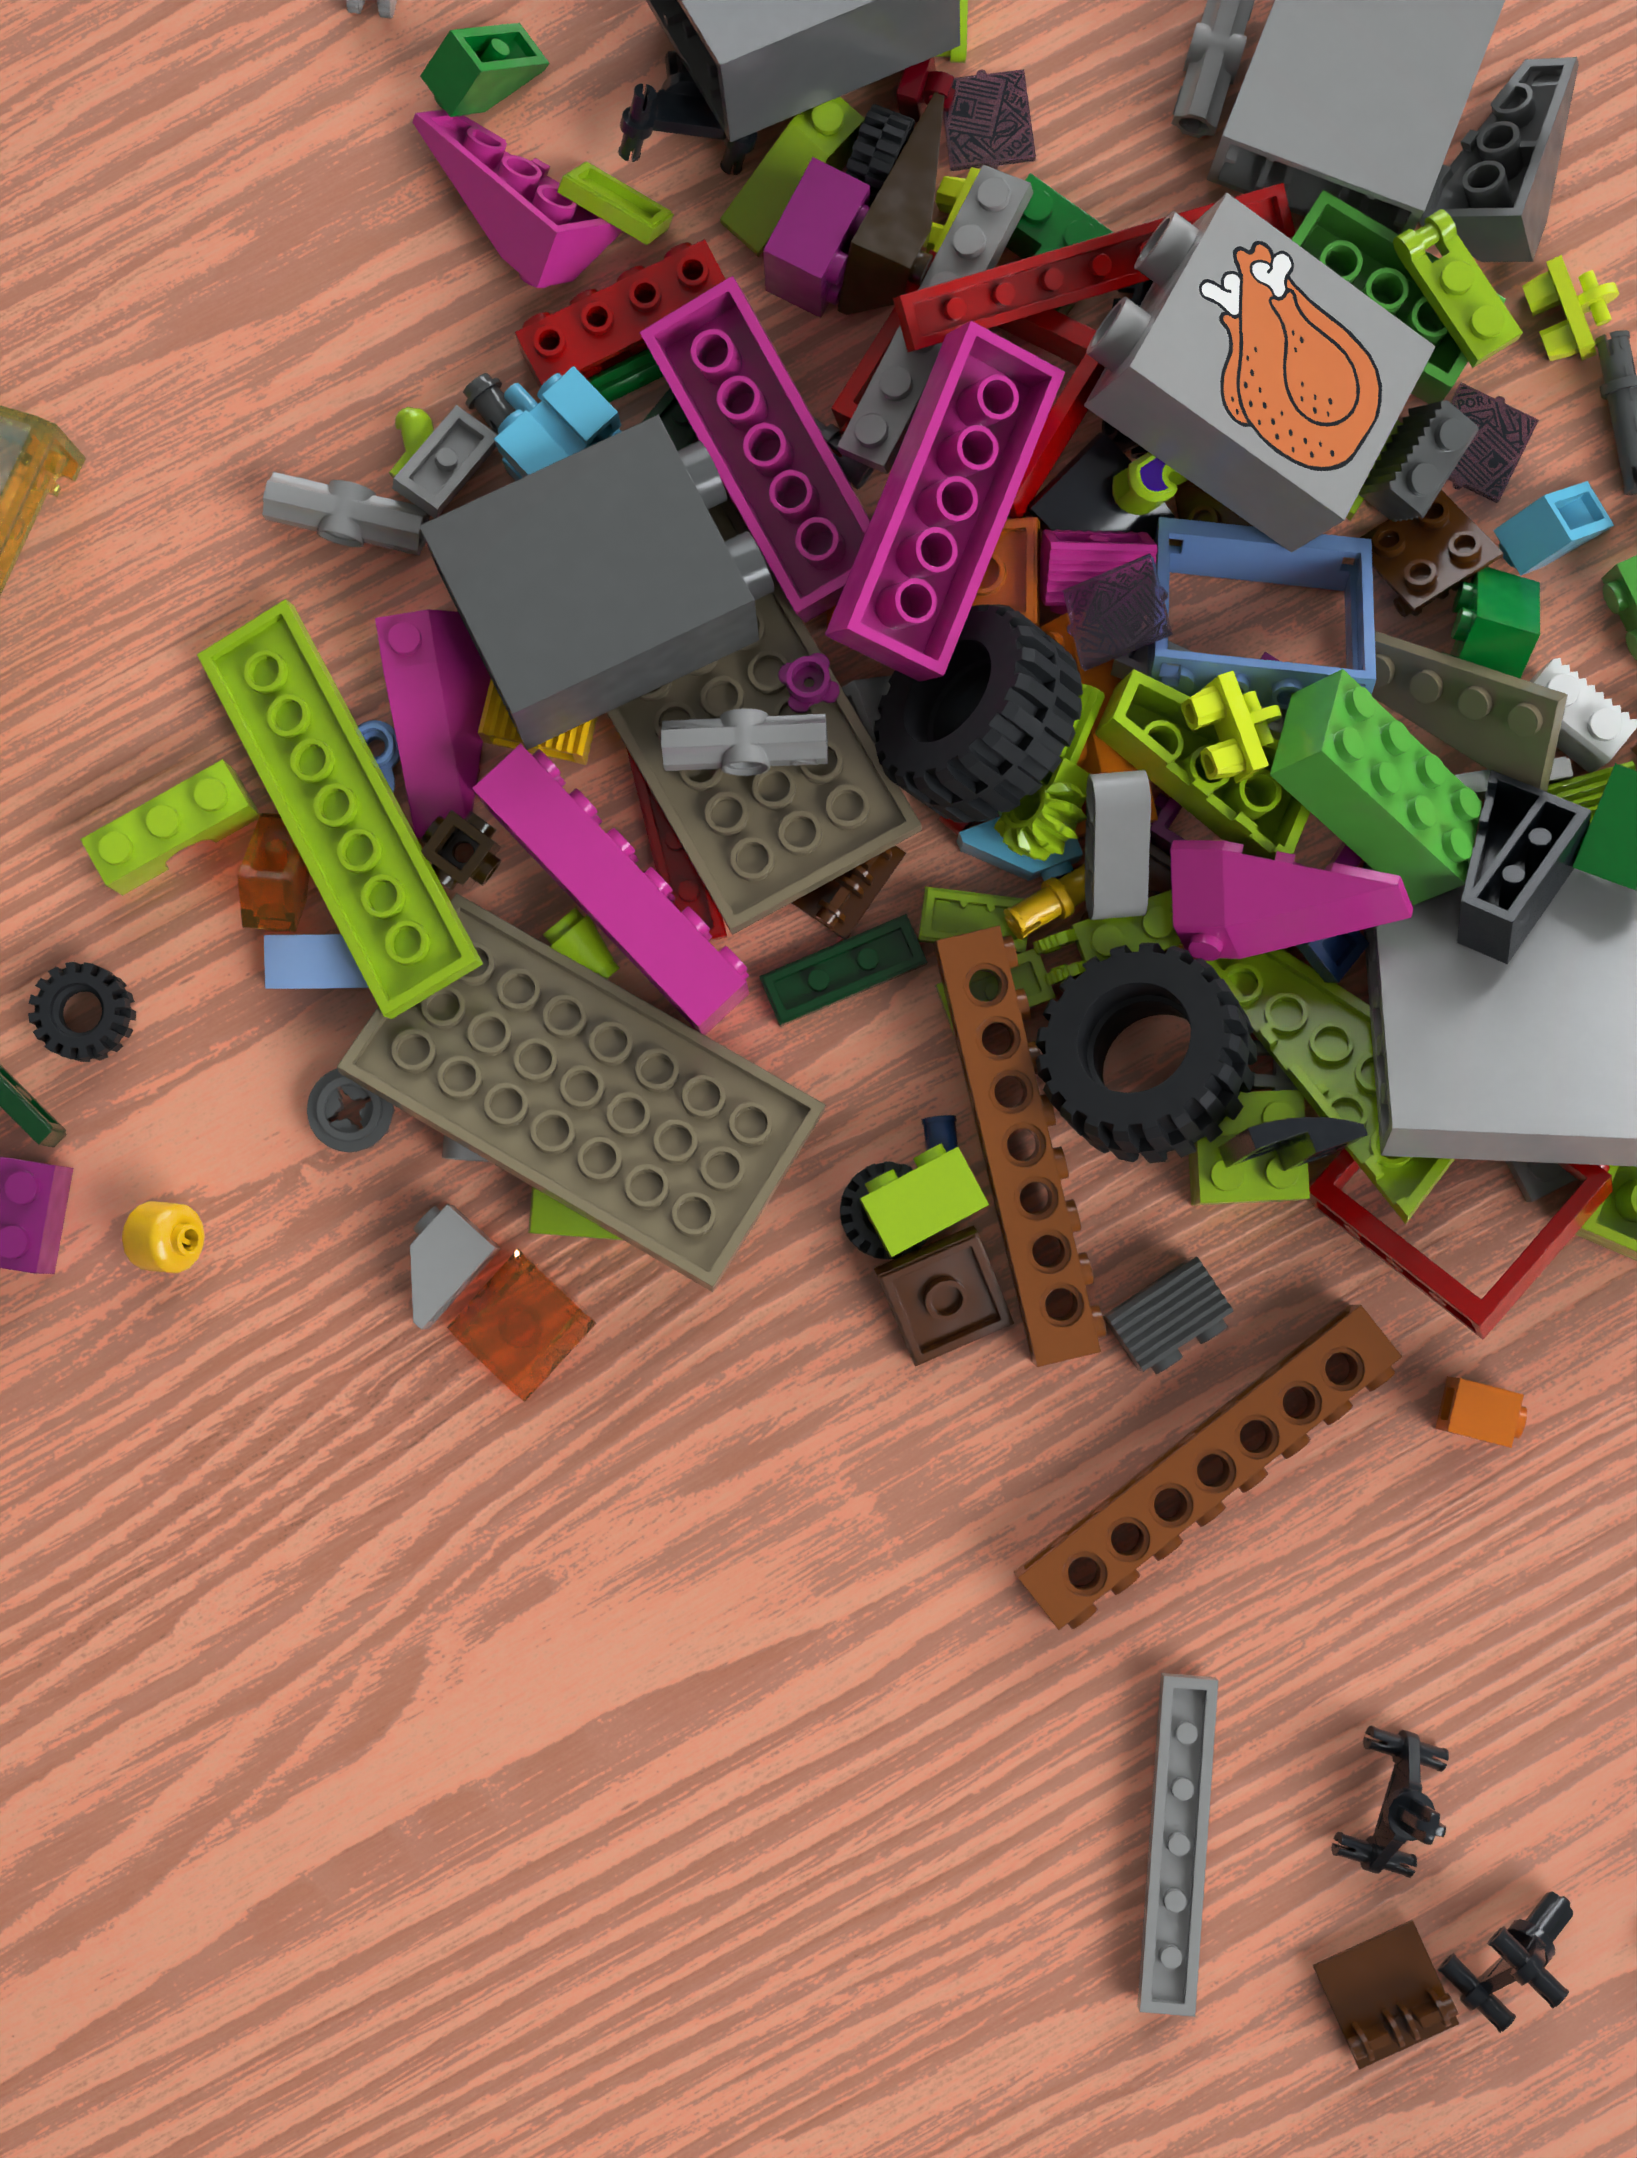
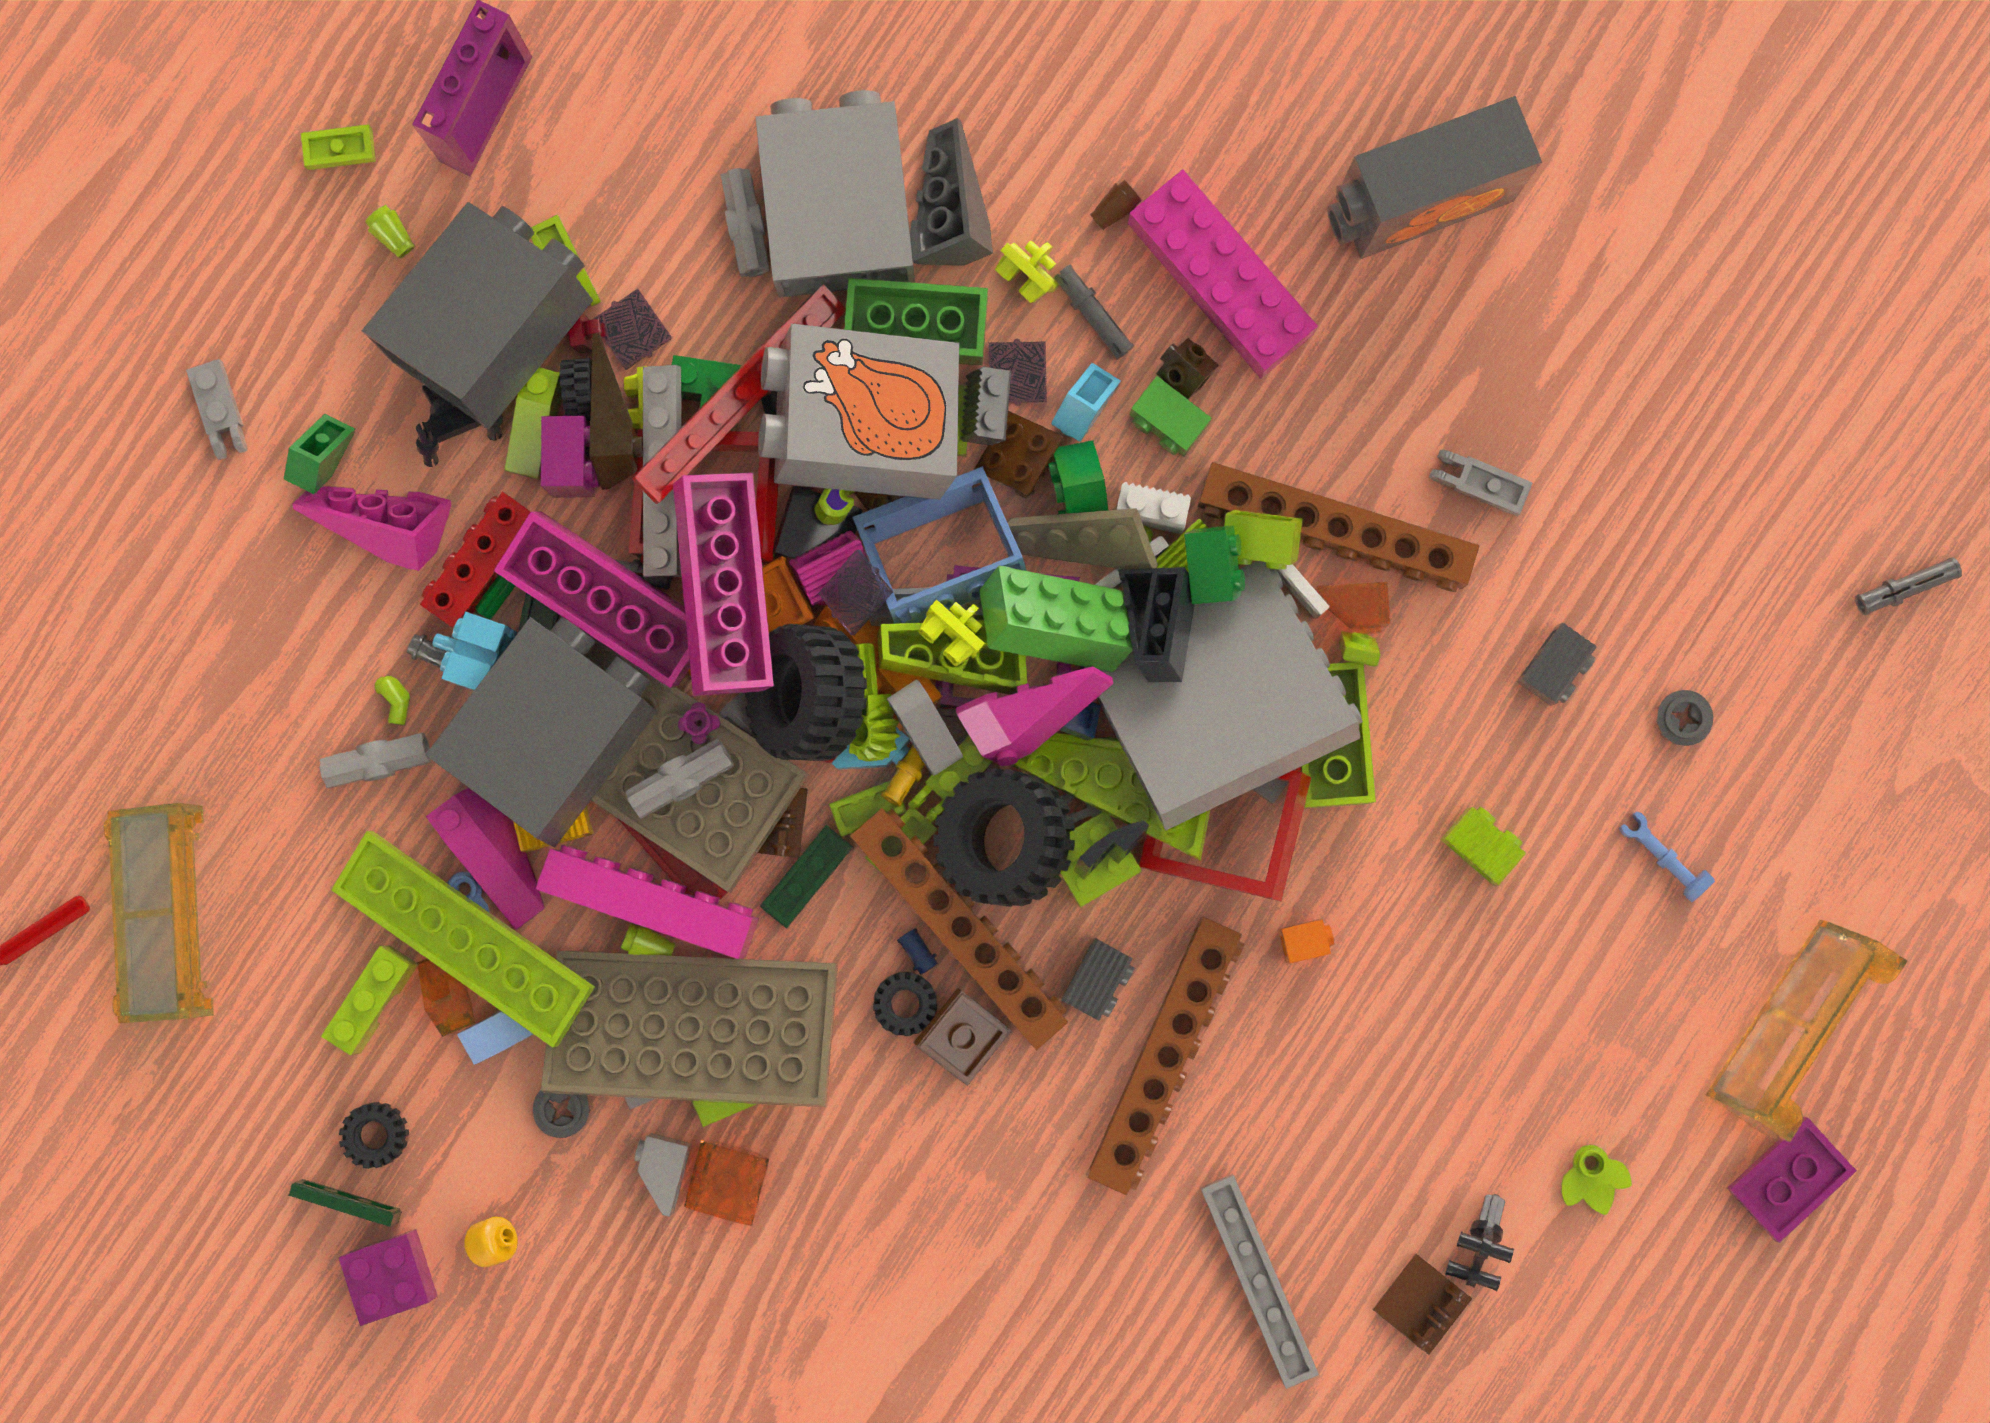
camera: 25 degrees left, 0 degrees up
(445, 462) = (418, 700): light grey plate -> none
(445, 836) = (533, 924): dark brown brick -> none
(615, 202) = (438, 493): lime tile -> none
(923, 1200) = (919, 990): lime brick -> none
(1405, 1809) = (1376, 1192): black axle -> none
(1457, 289) = (956, 298): lime plate -> none

